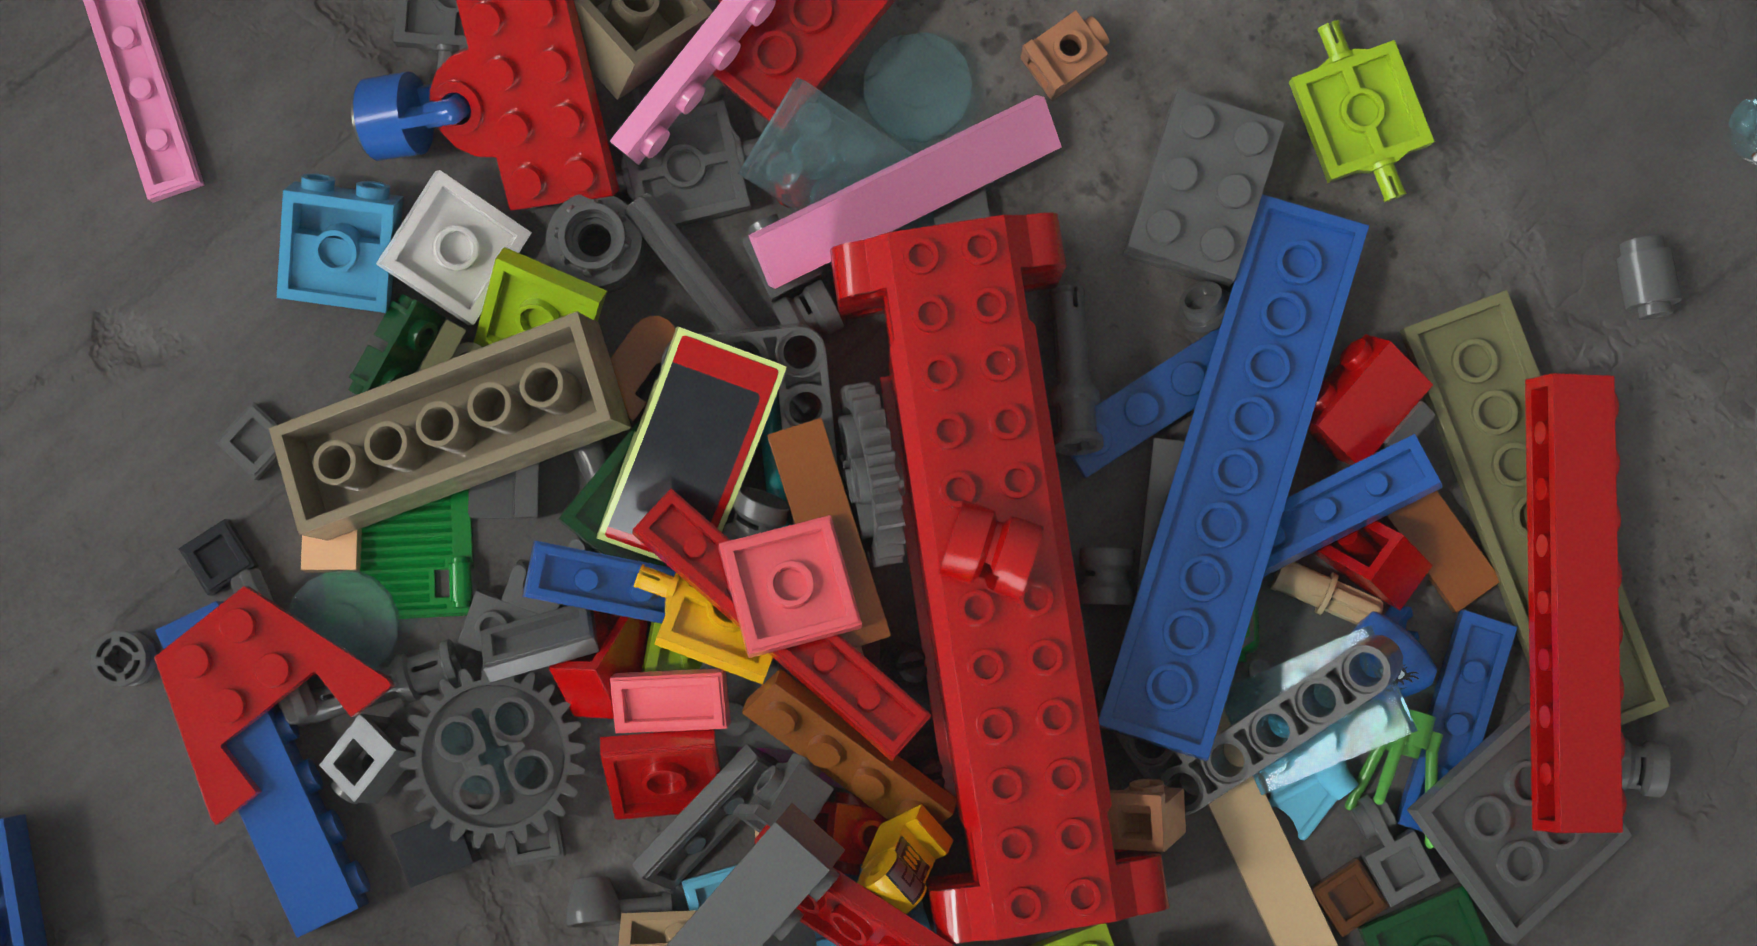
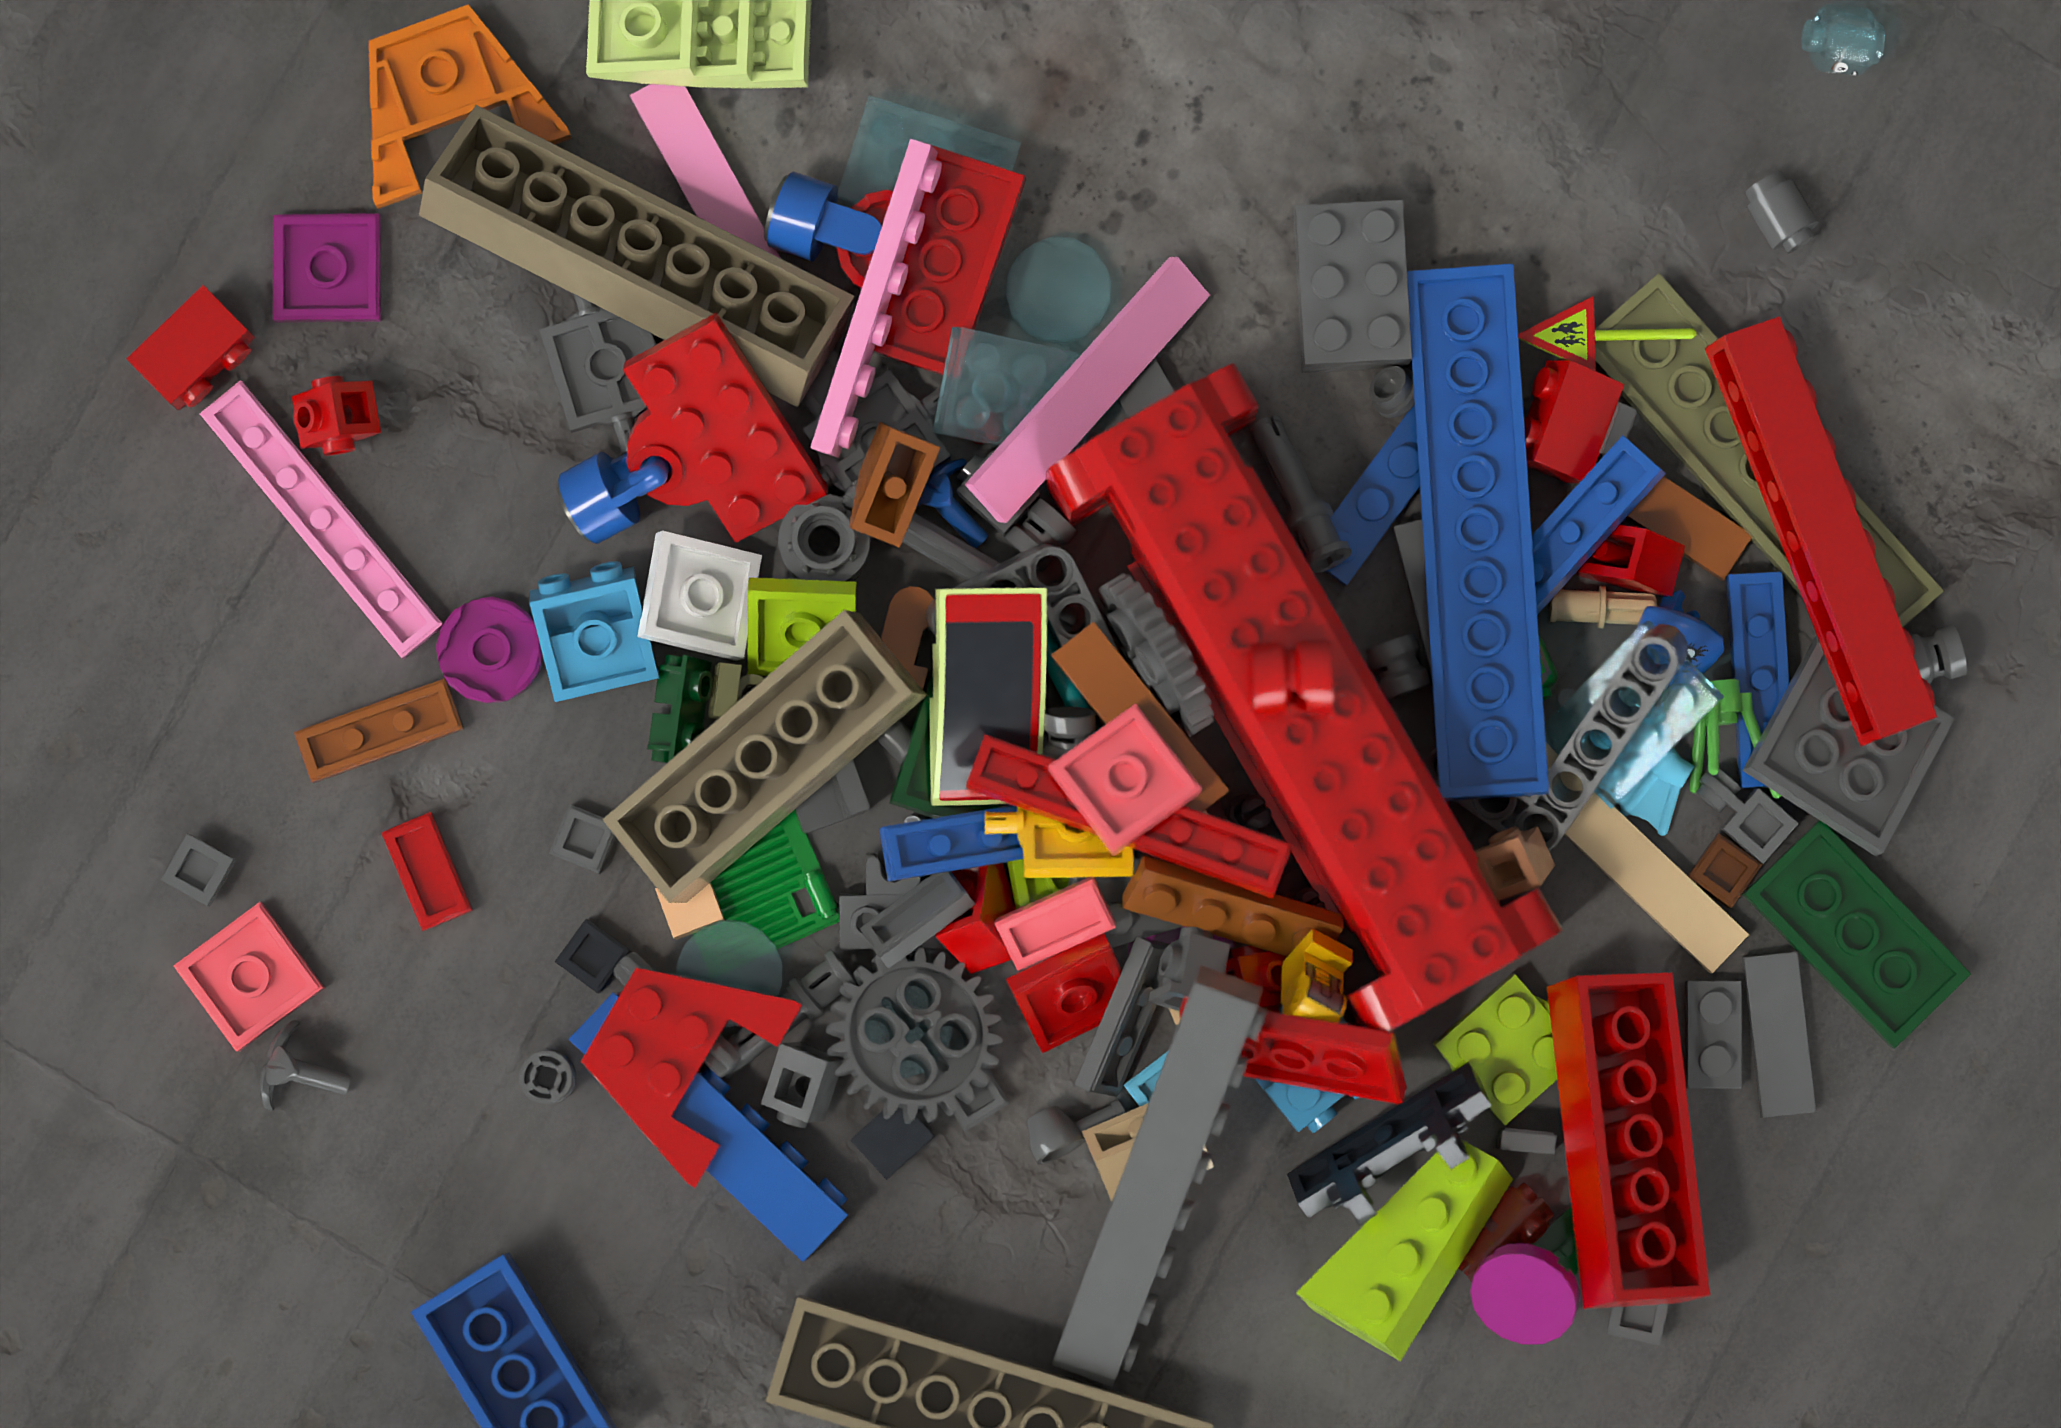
camera: 20 degrees left, 0 degrees up
(92, 414) = (427, 871): none -> red tile
(100, 261) = (379, 730): none -> dark orange tile
(233, 224) = (489, 650): none -> magenta tile
(677, 208) = (891, 483): none -> dark orange slope
(721, 237) = (939, 494): none -> blue plant
(1060, 72) = (1178, 228): nougat brick -> none
(1361, 111) = (1467, 160): lime plate -> none
(1401, 318) = (1573, 334): none -> piece

